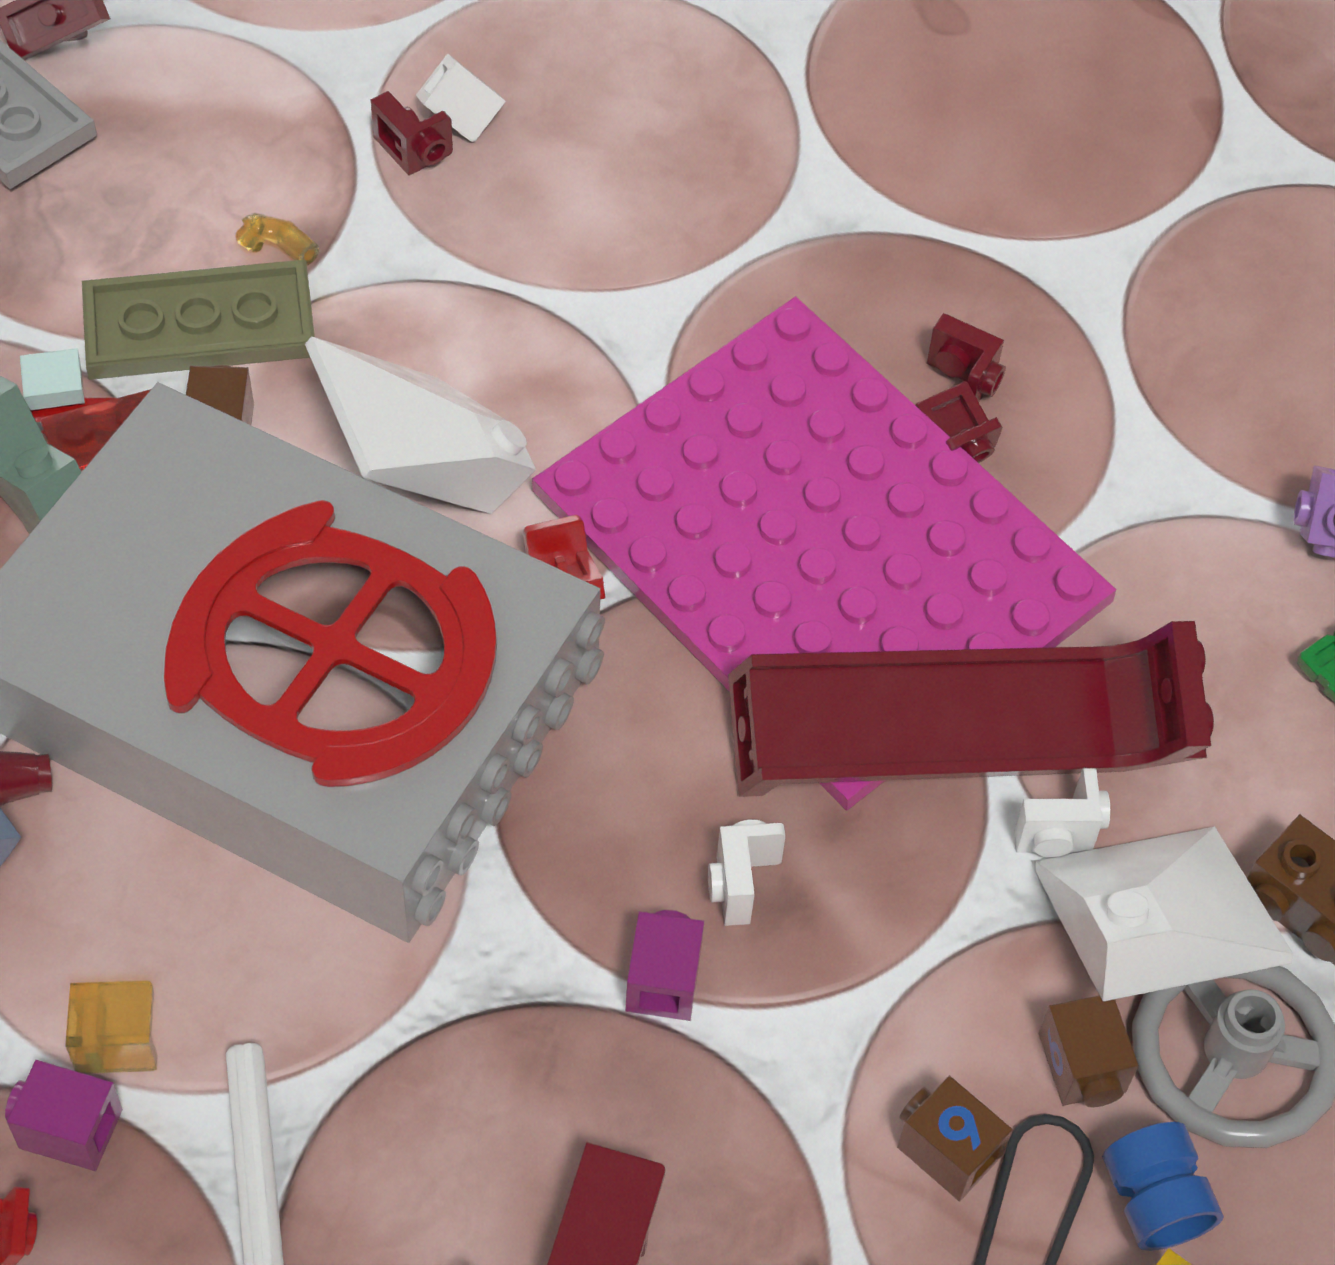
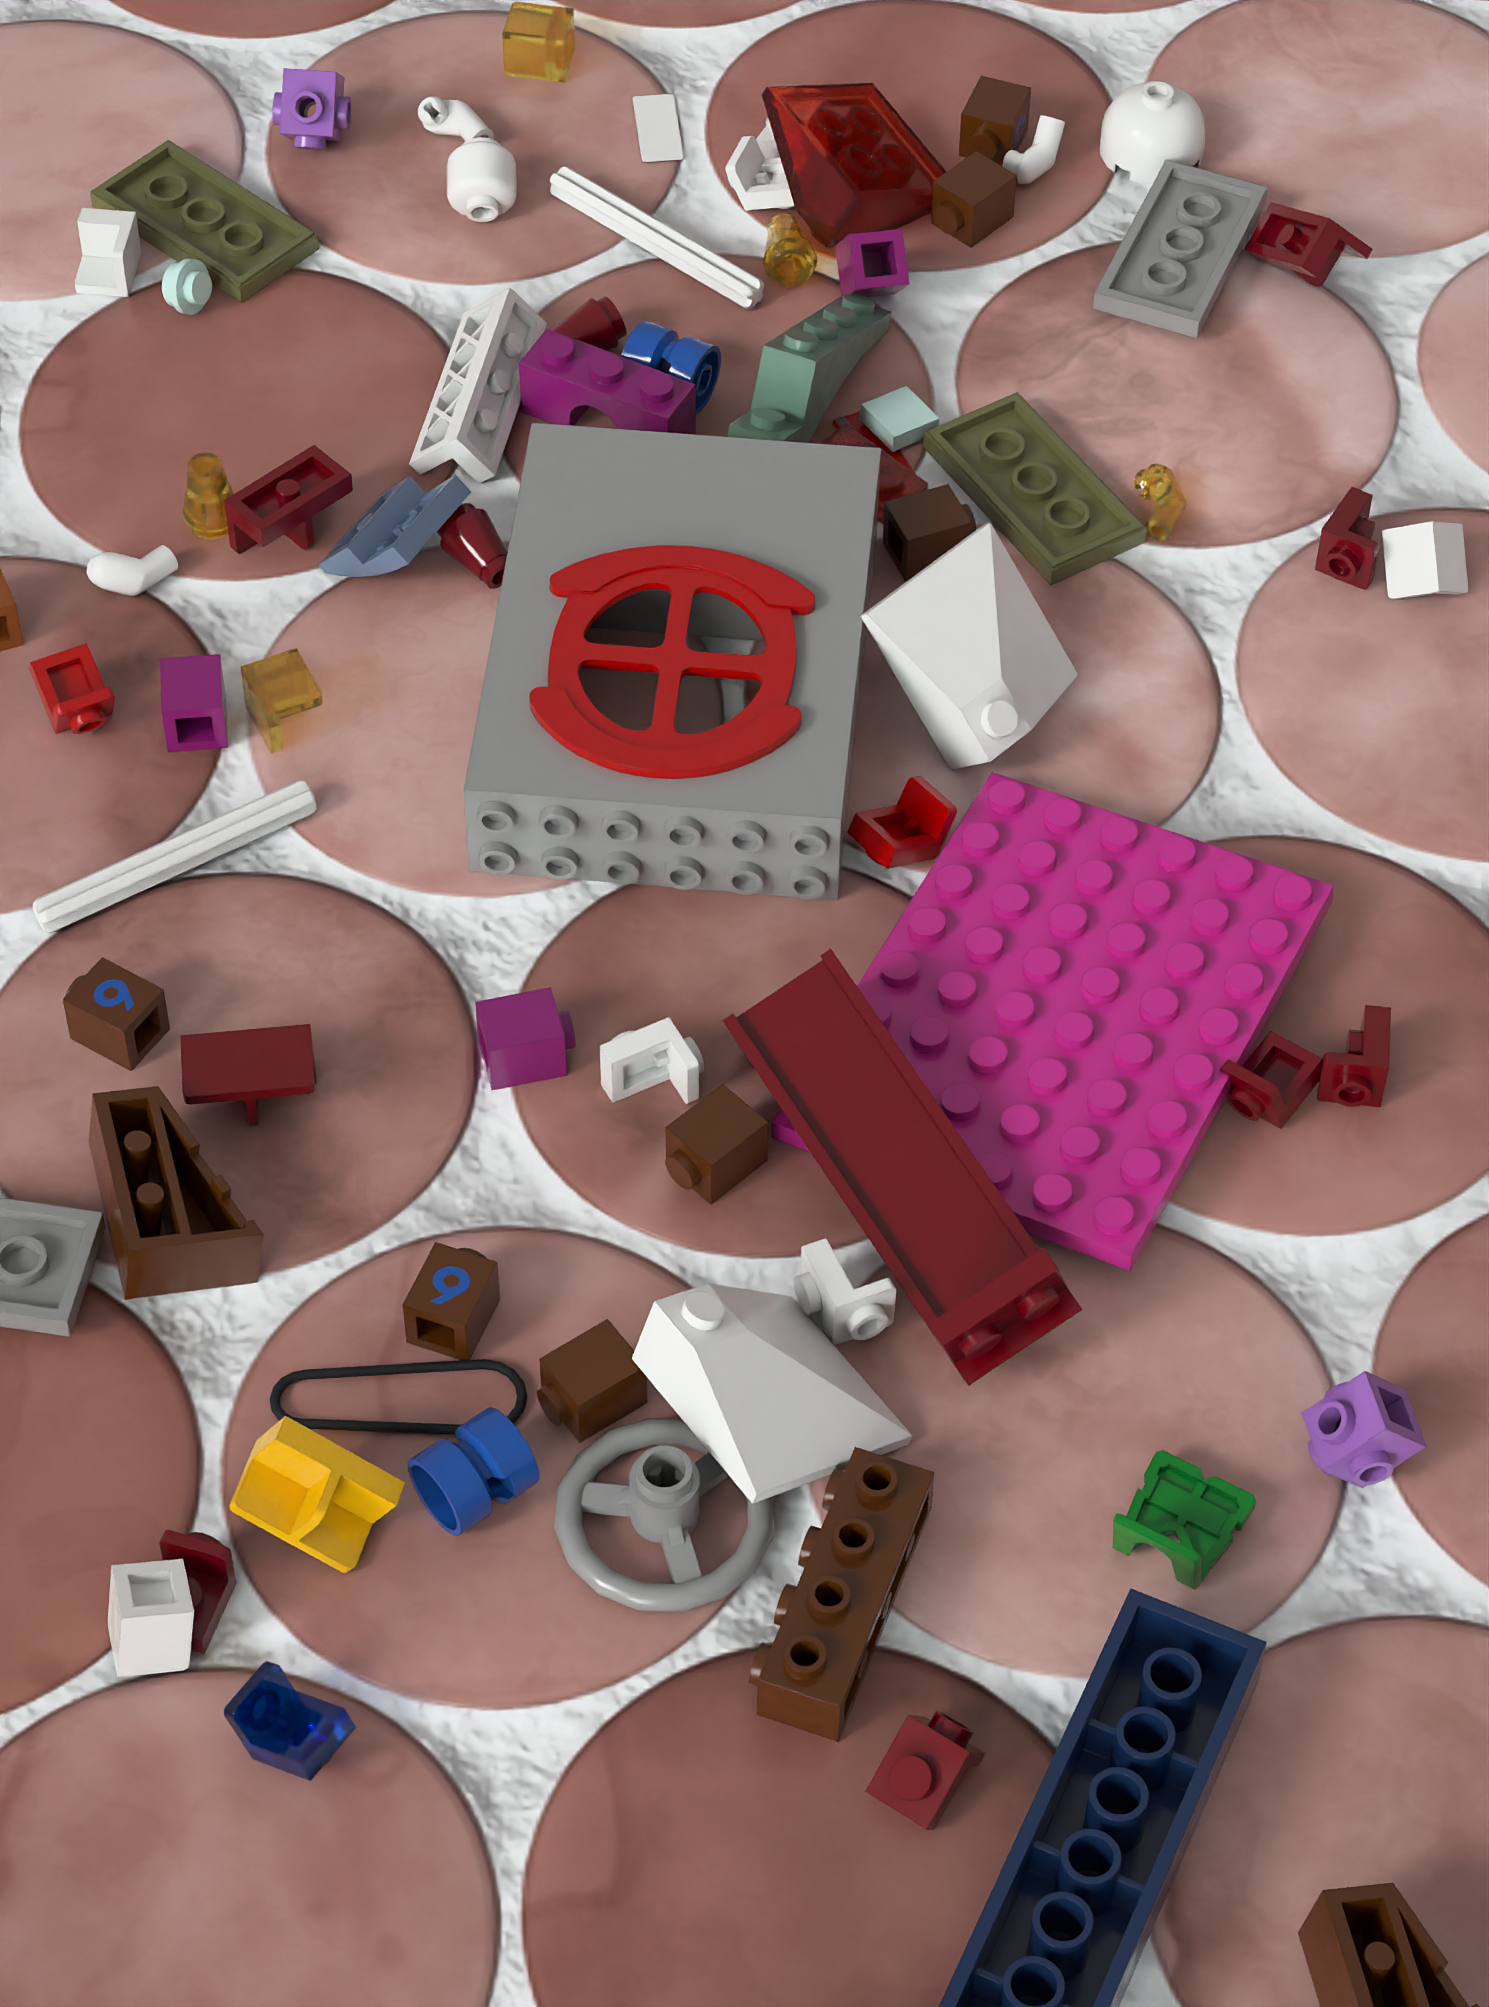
camera: 70 degrees right, 5 degrees down
(860, 851) = (716, 1144): none -> reddish brown brick

